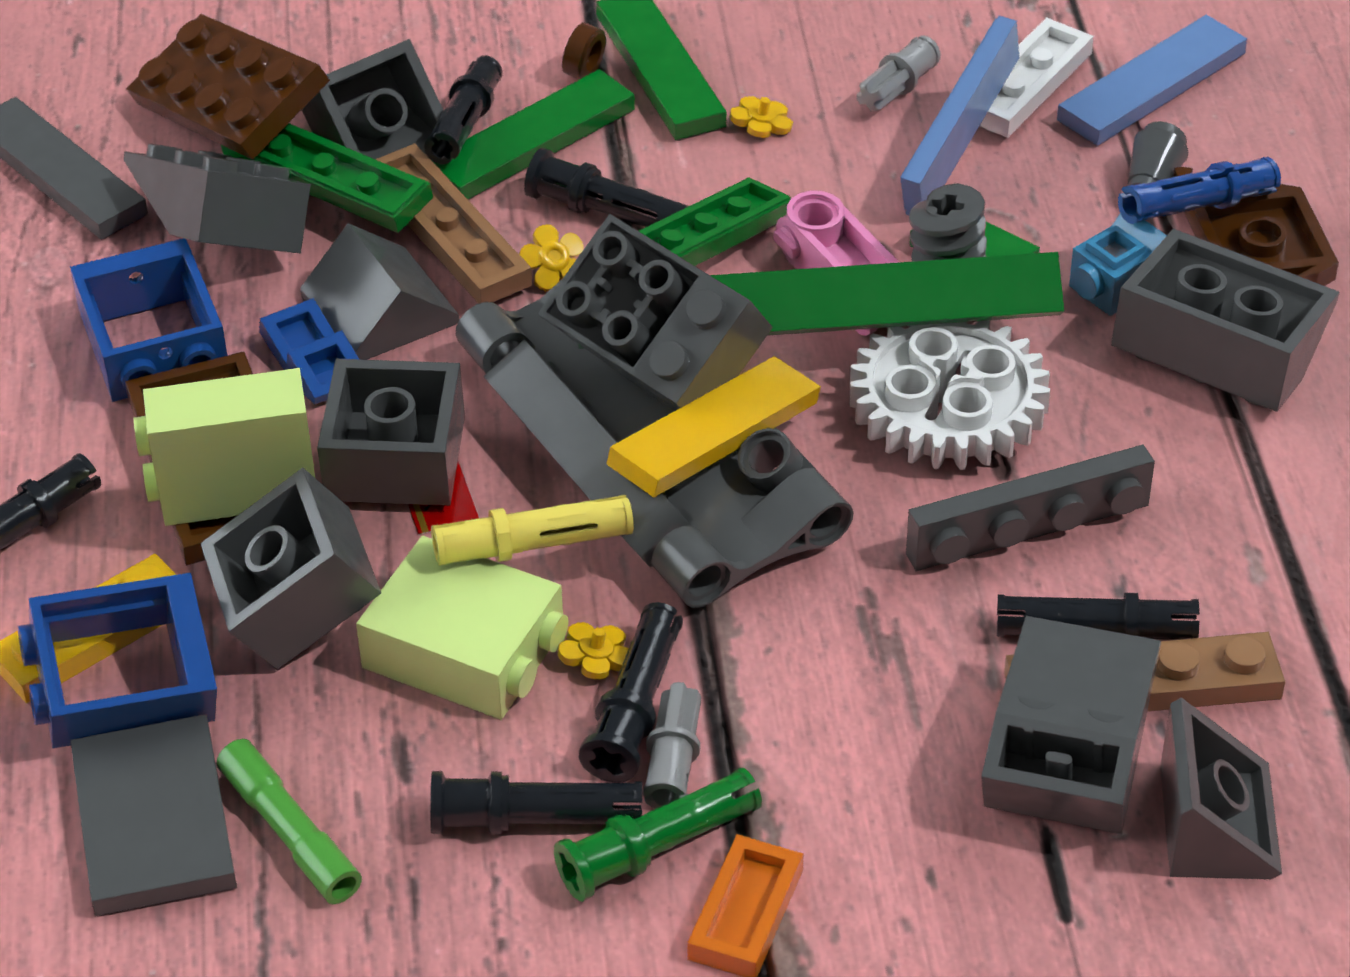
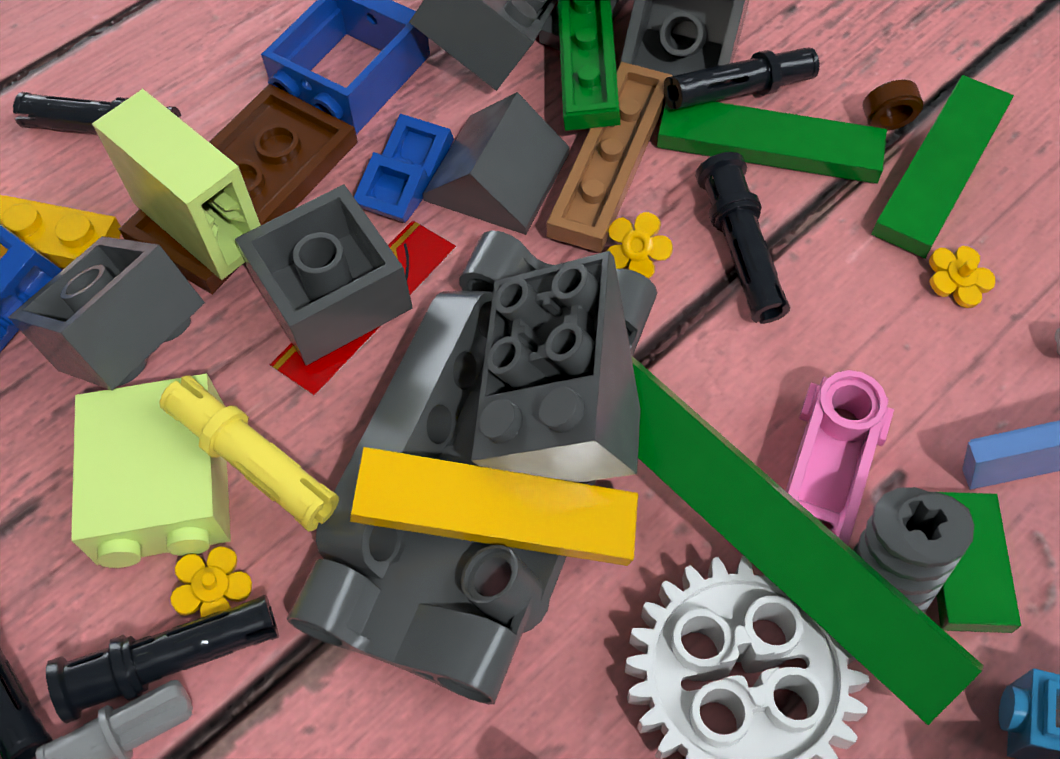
camera: 55 degrees right, 15 degrees up
(720, 221) = (750, 328): green tile -> none

